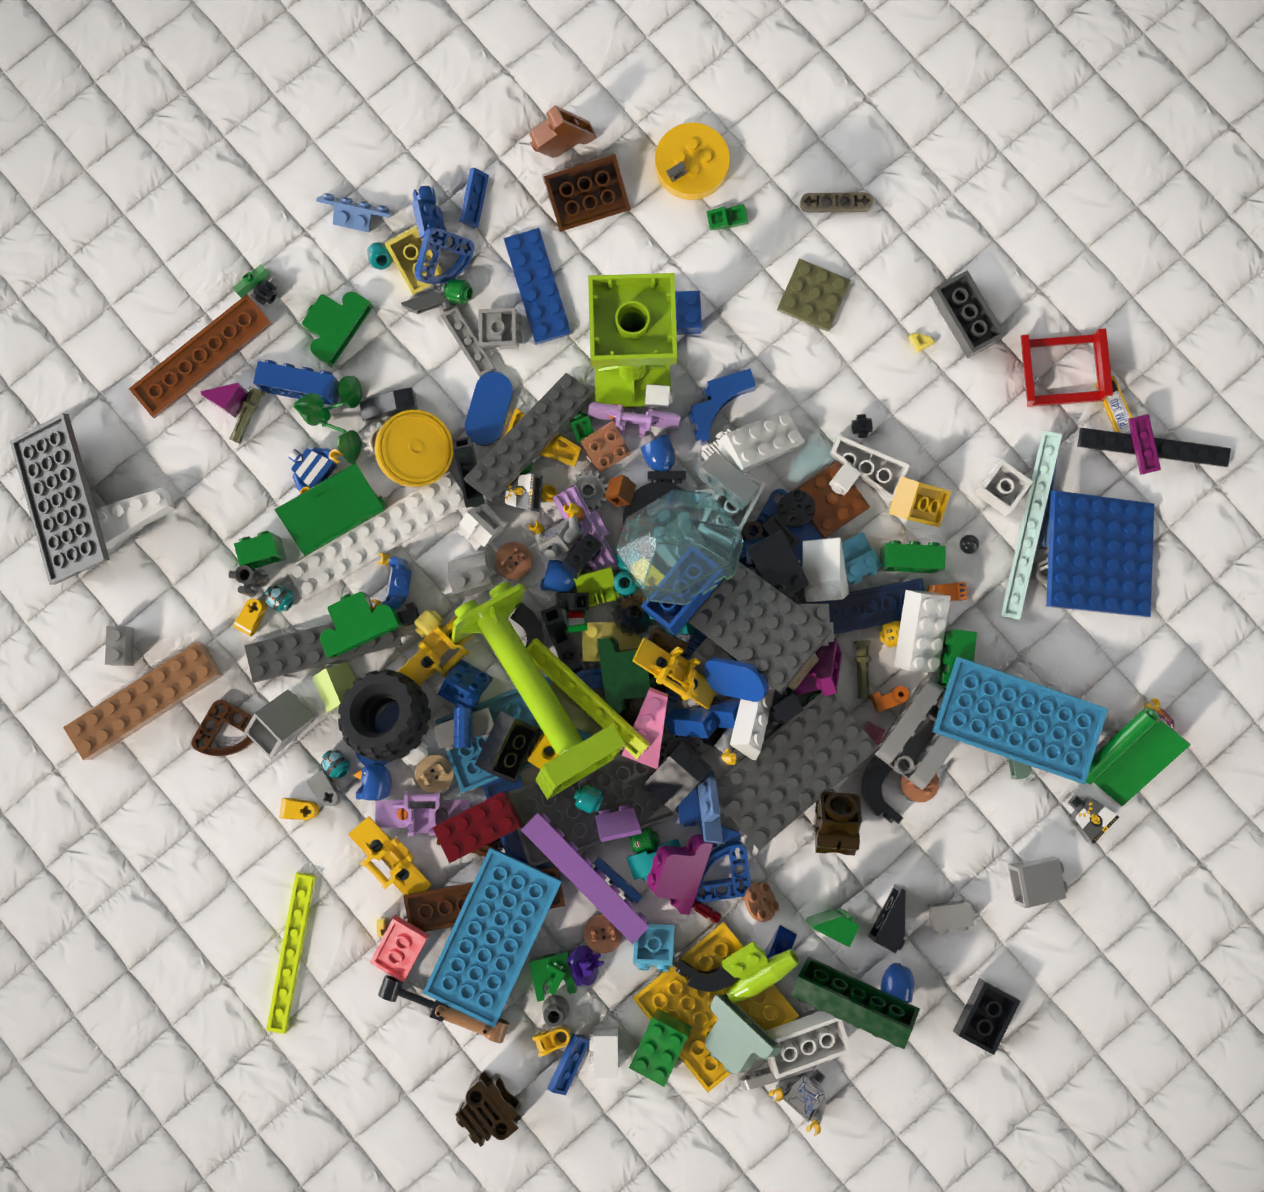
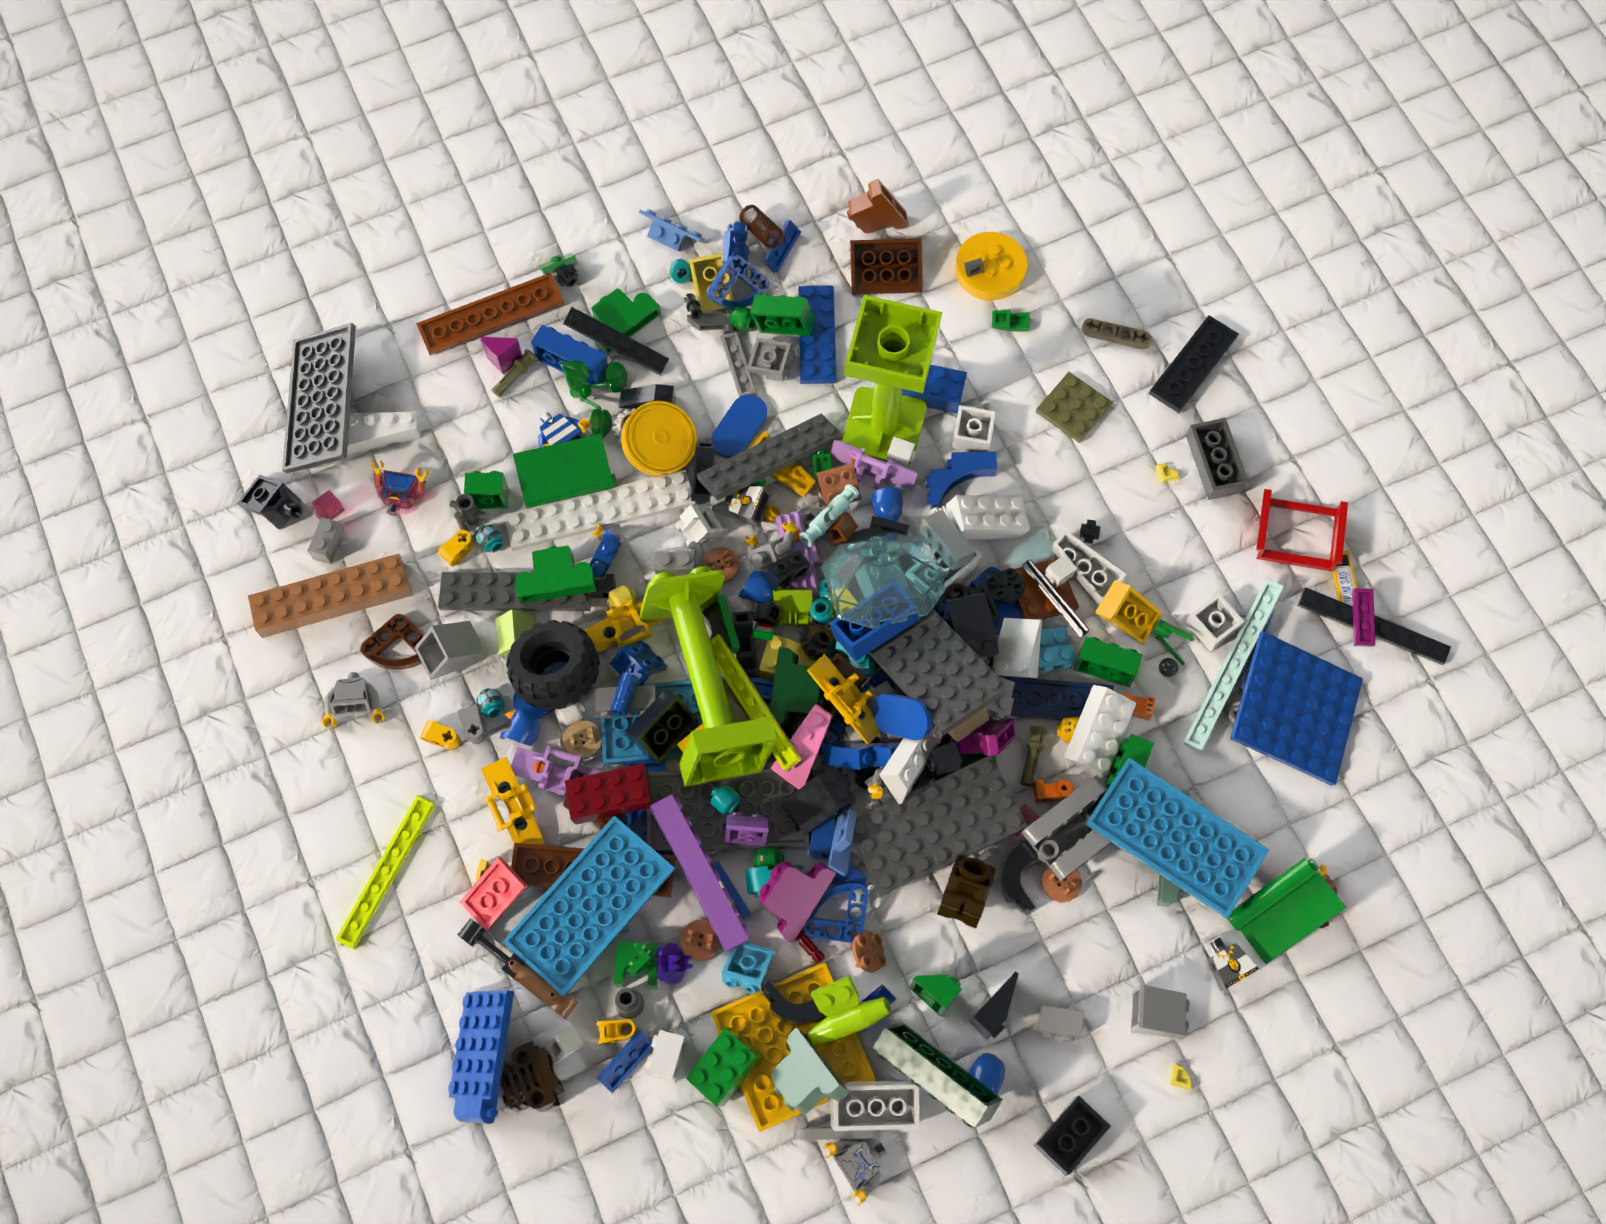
camera: 15 degrees right, 15 degrees down
(50, 621) = (272, 501): none -> black plate
(108, 610) = (327, 506): none -> clear pink brick
(171, 572) = (398, 489): none -> torso
(201, 798) = (351, 697): none -> light grey torso
(337, 354) = (615, 341): none -> black plate
(404, 292) = (693, 306): none -> black pin
(436, 1102) = (480, 1055): none -> plate
(458, 190) = (770, 225): none -> reddish brown piece
(498, 279) = (782, 315): none -> green brick
(509, 1067) = (564, 1044): none -> white brick
(539, 625) = (727, 623): none -> green tile
(607, 481) = (834, 509): none -> light aqua piece
(722, 350) = (973, 429): none -> white brick
(846, 507) = (1055, 598): none -> axle
(921, 215) = (1193, 364): none -> black plate
(957, 506) = (1163, 630): none -> green plant
(1069, 933) = (1180, 1077): none -> light yellow tile

